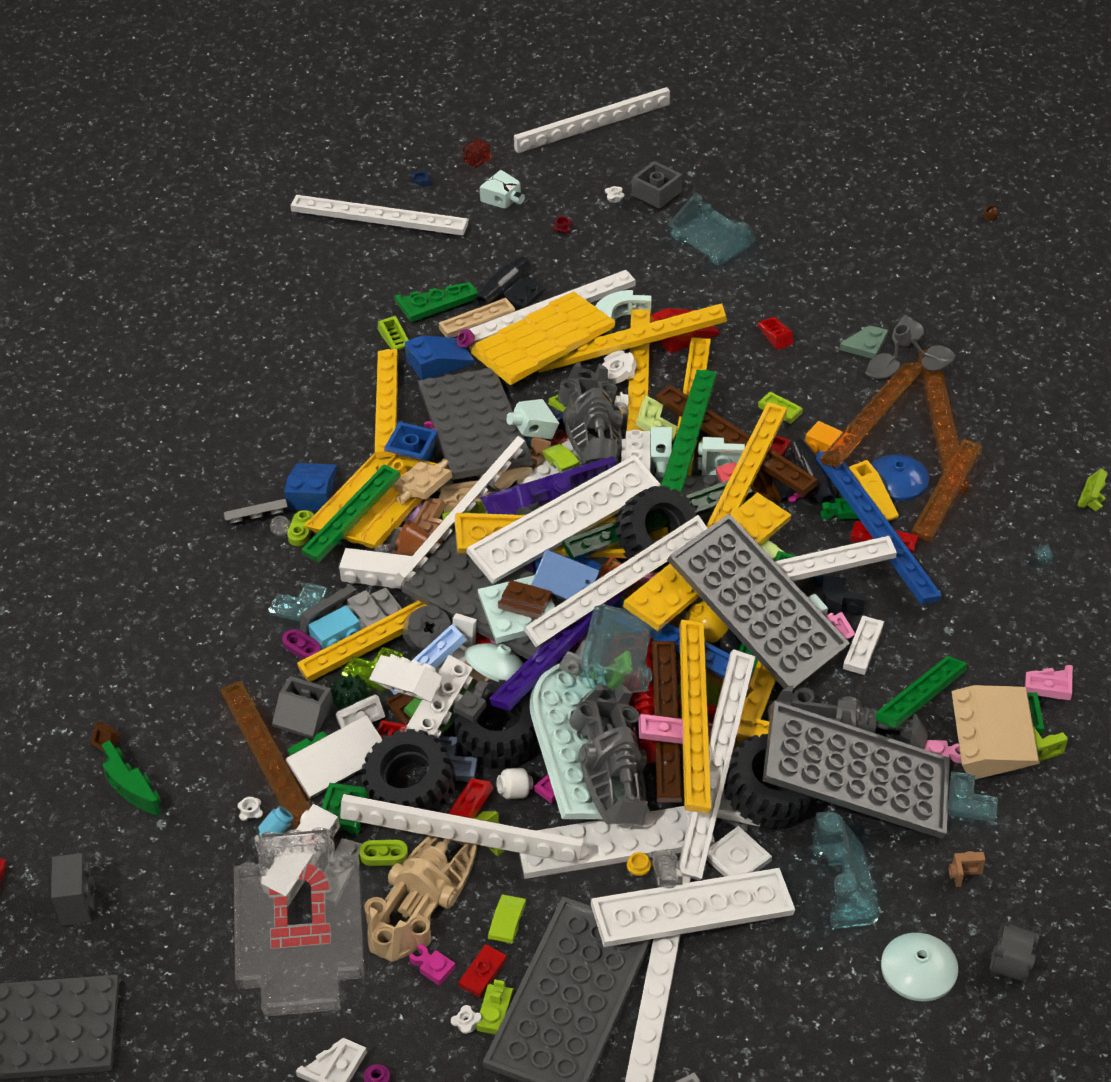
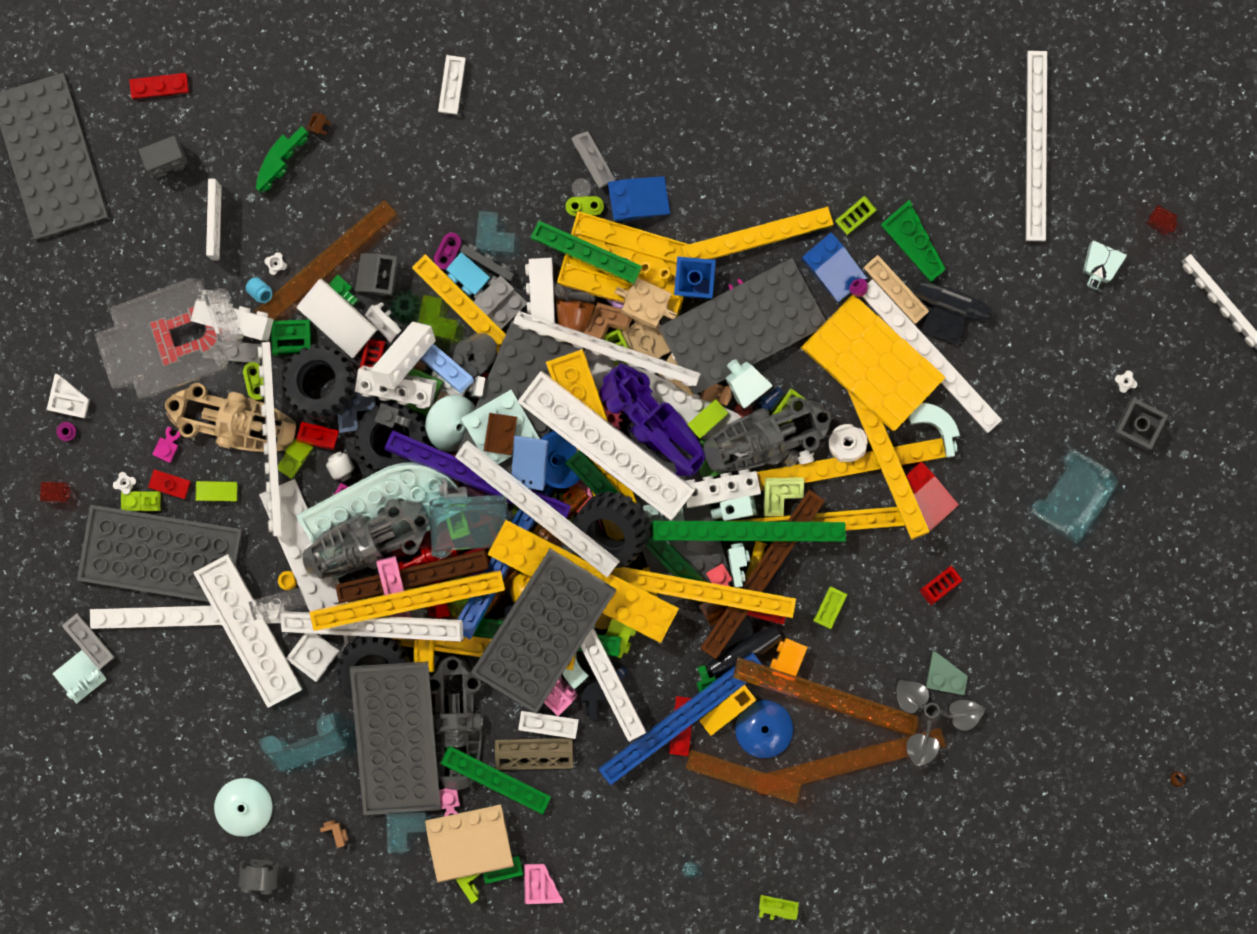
camera: 75 degrees right, 40 degrees up
(121, 611) = (452, 85): none -> white plate
(172, 850) = (213, 220): none -> white tile
(420, 178) = (1111, 171): dark blue tile -> none
(562, 224) = (1063, 334): dark red plate -> none
(892, 658) = (533, 750): none -> dark tan fence

